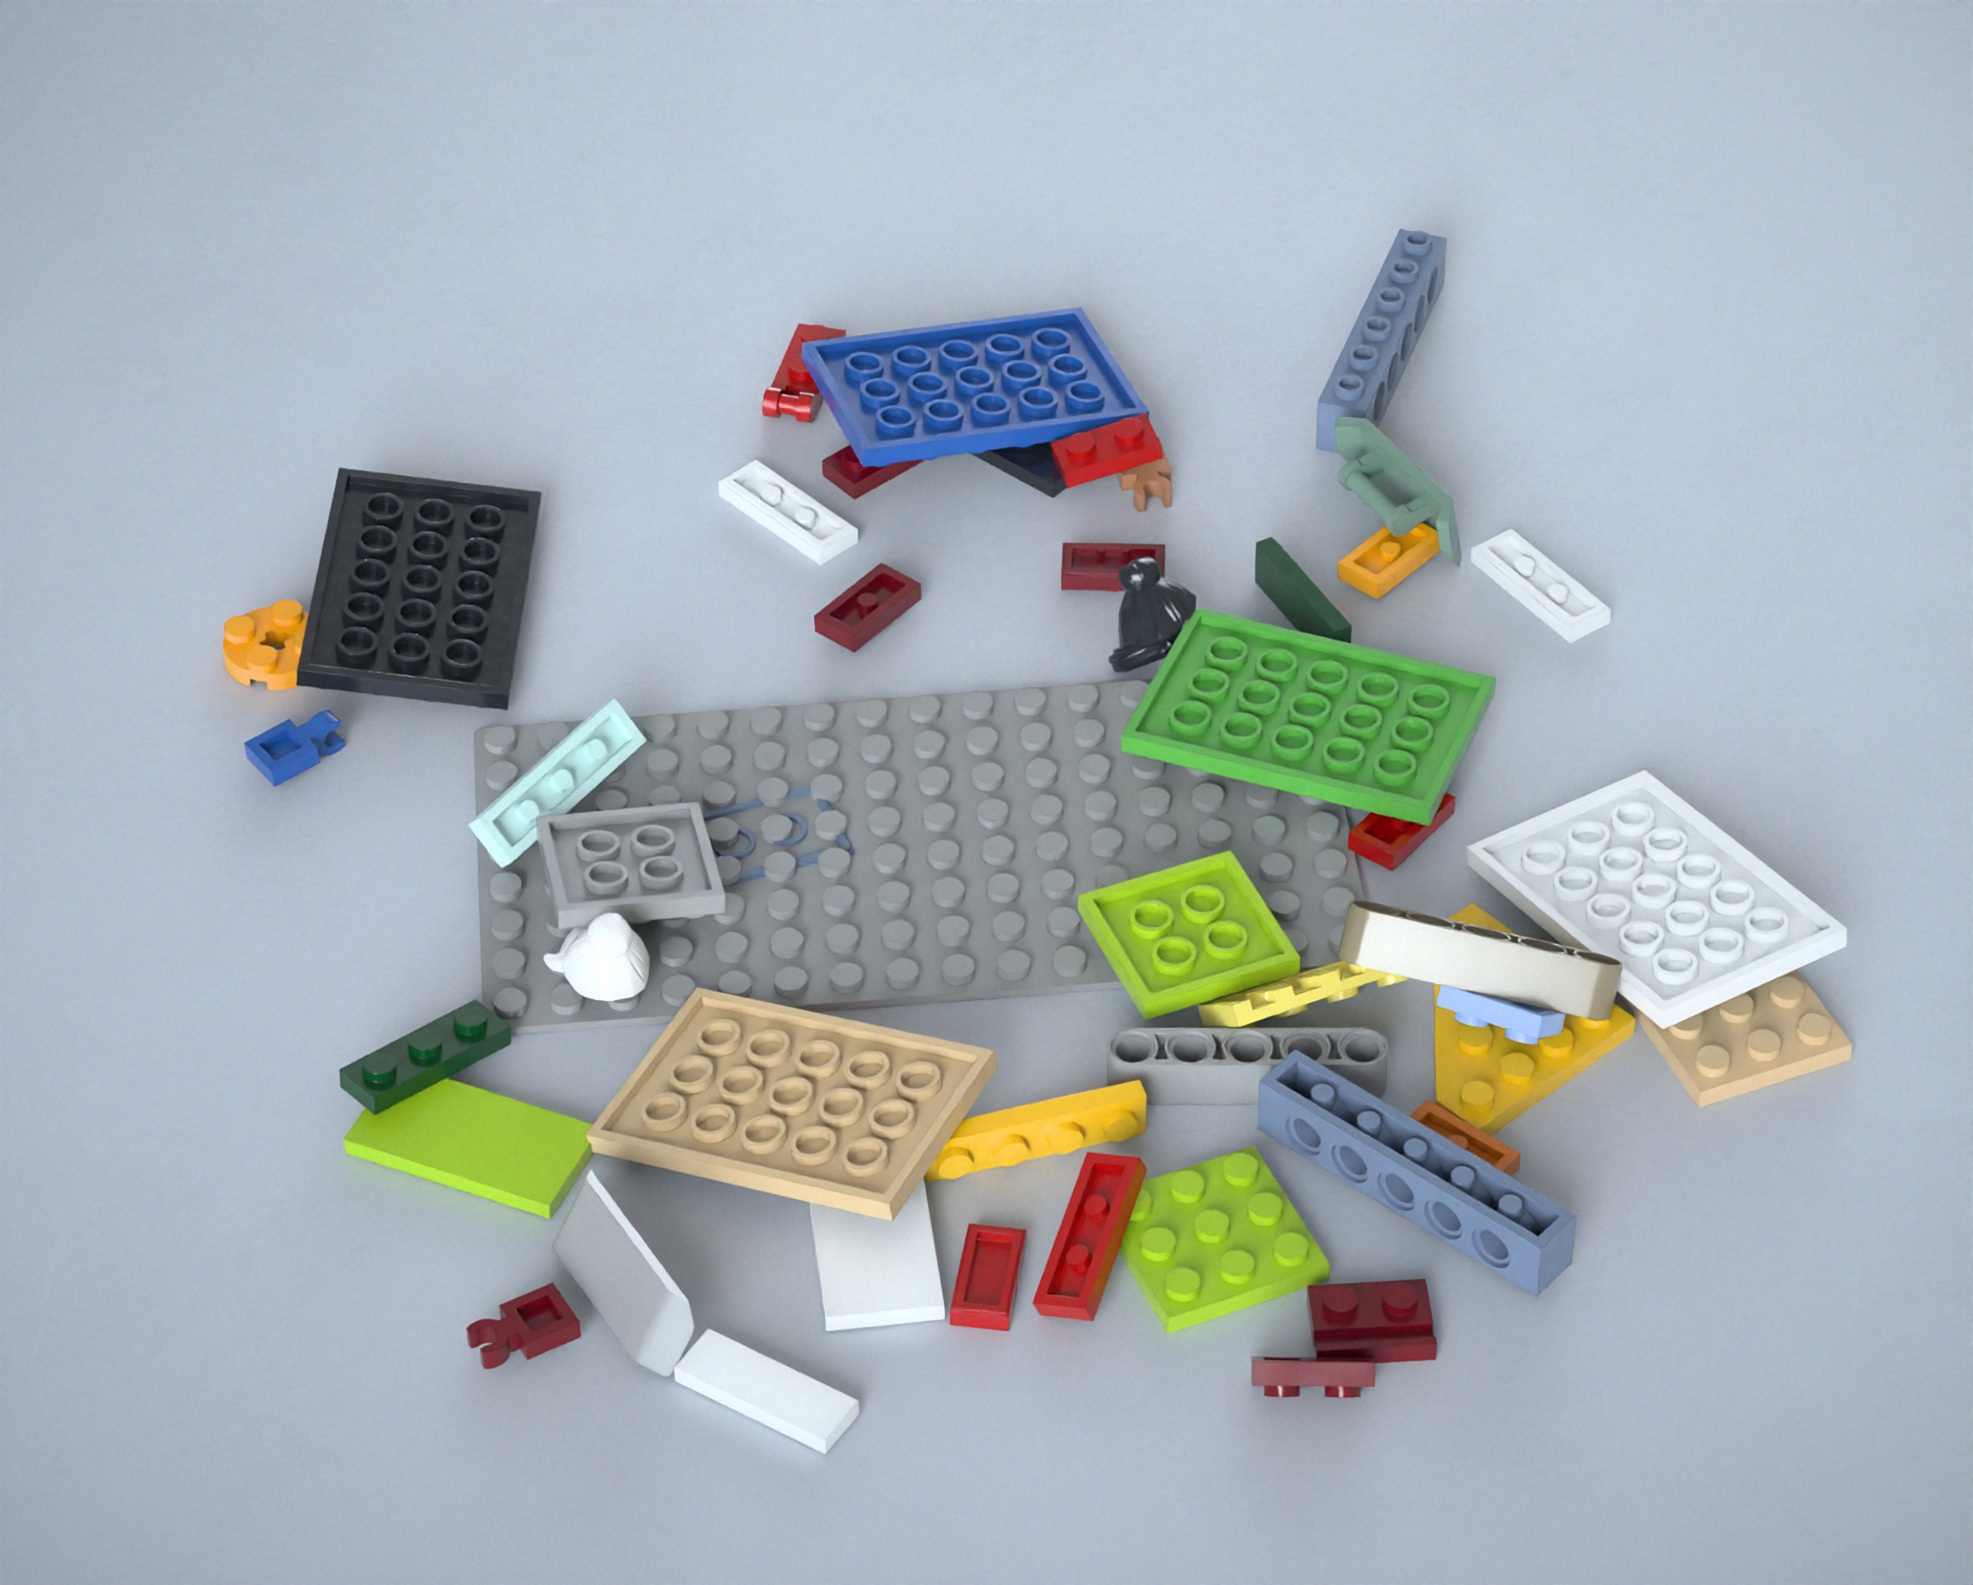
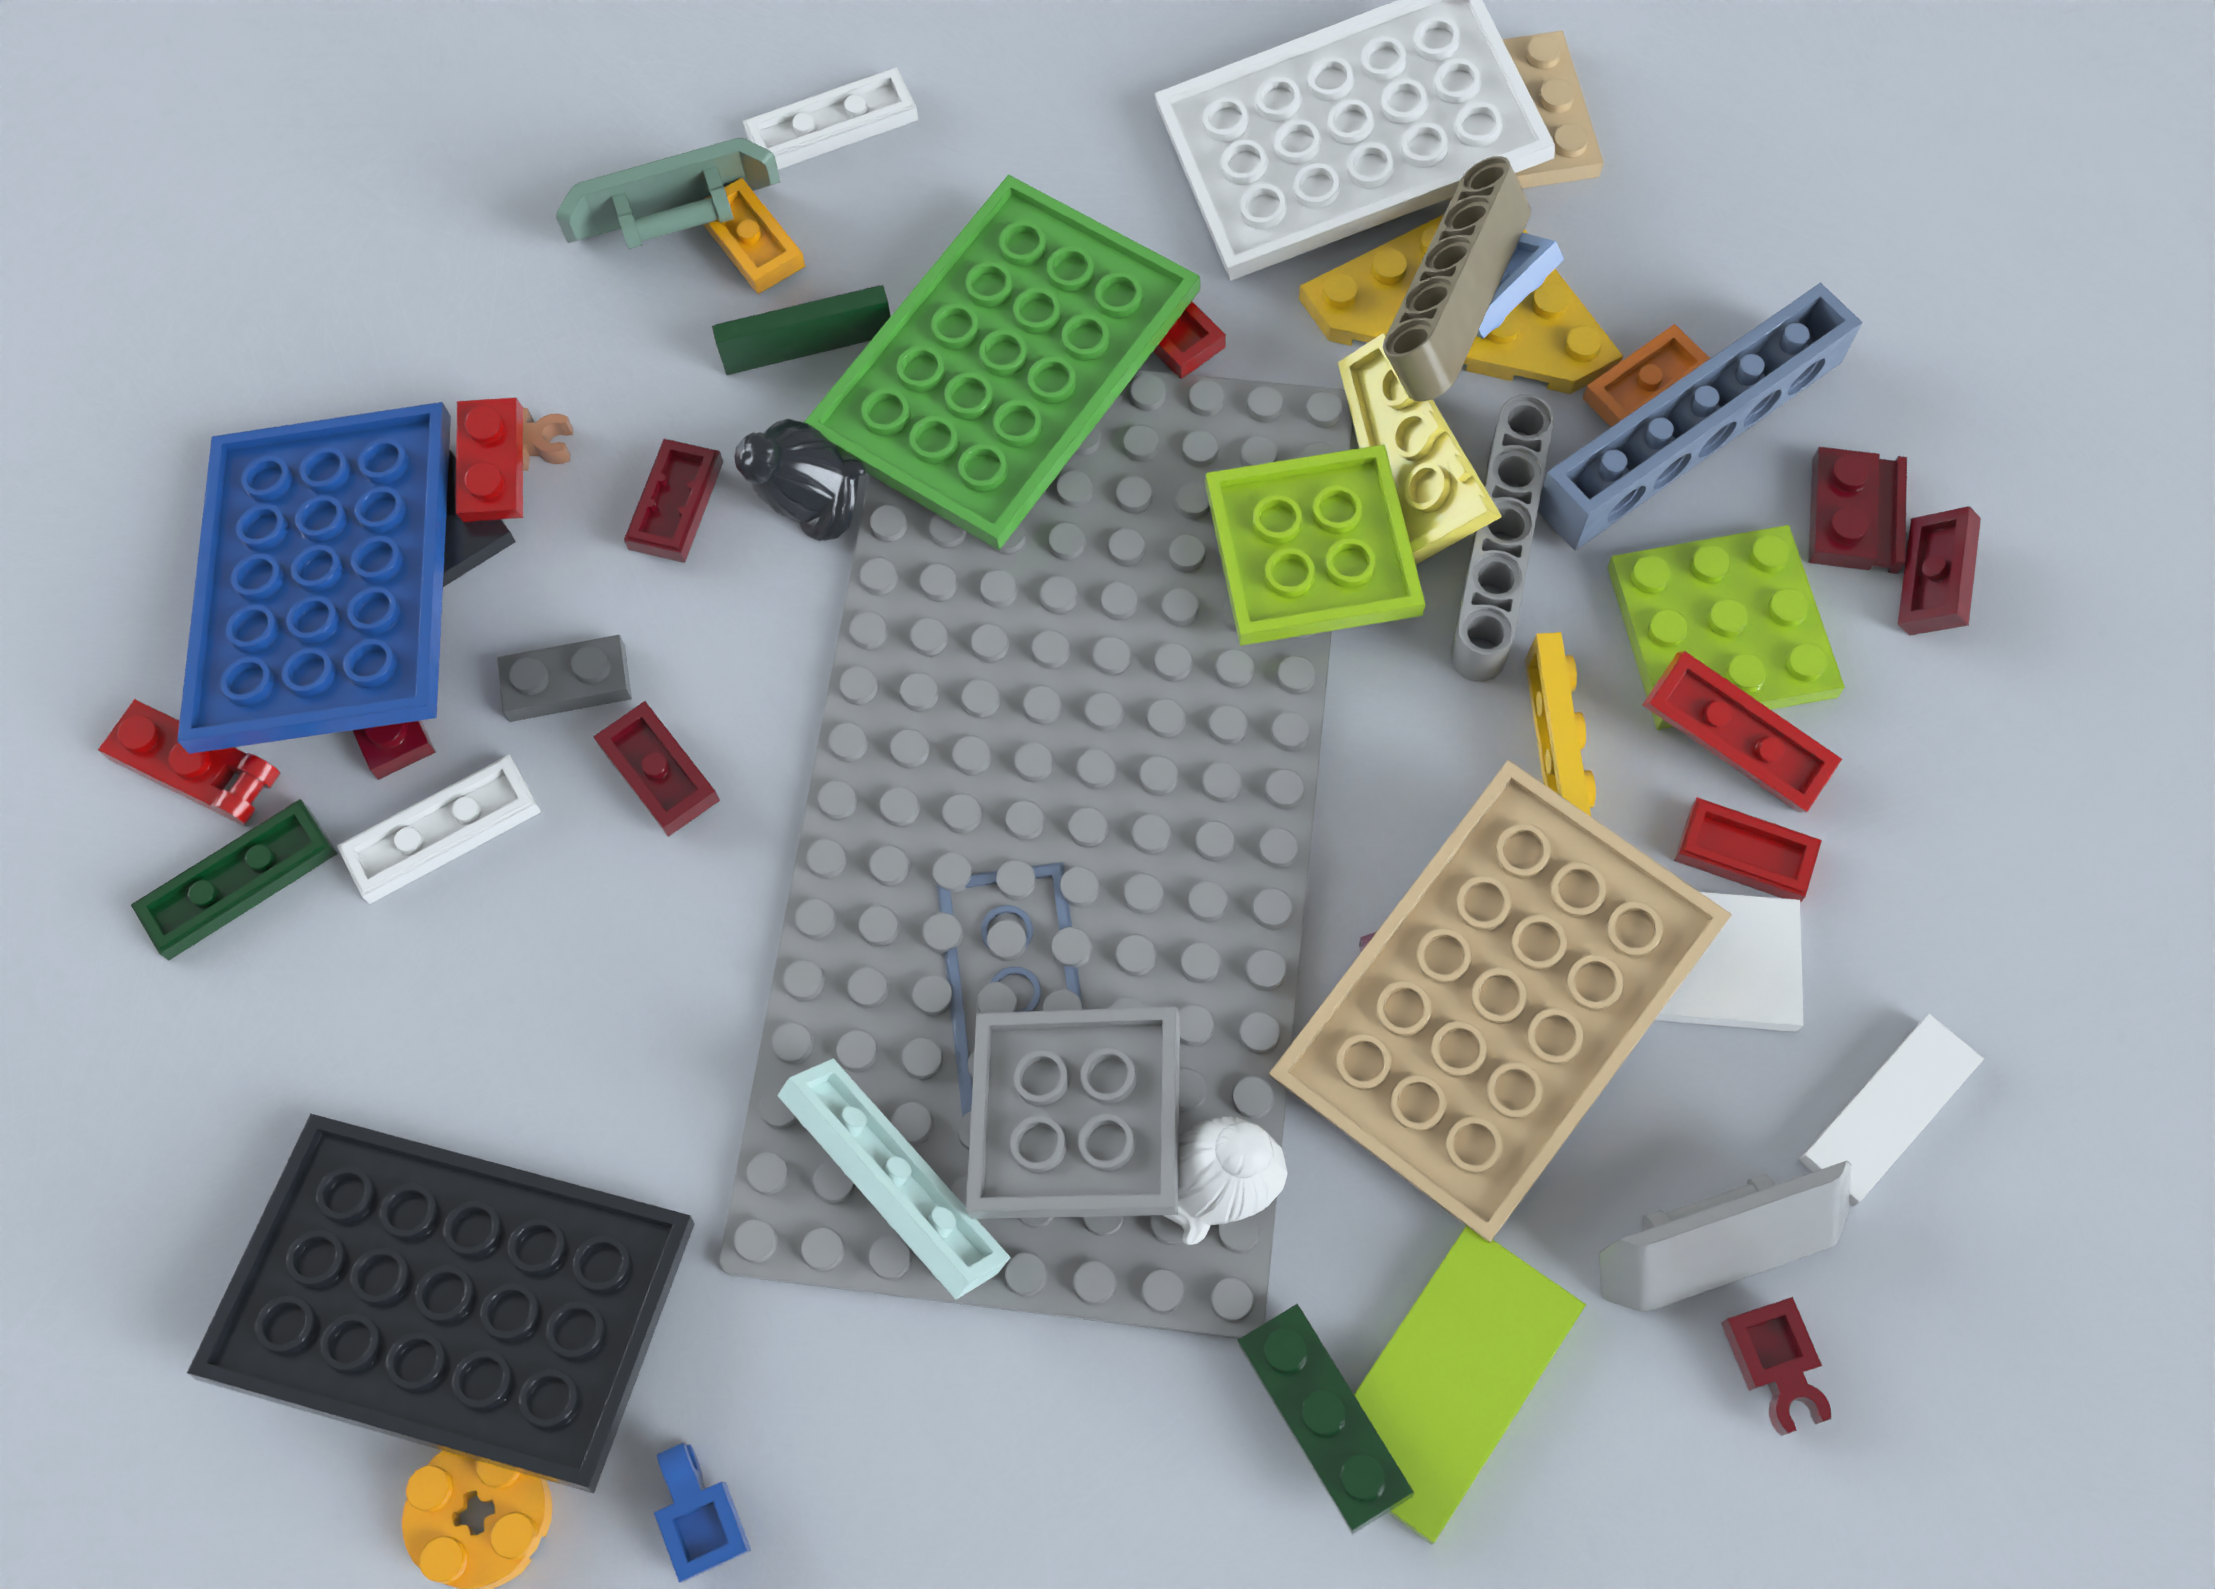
camera: 75 degrees left, 25 degrees up
(718, 420) = (233, 879): none -> dark green tile
(935, 547) = (564, 678): none -> dark grey plate
(1383, 334) = (405, 159): sand blue brick -> none

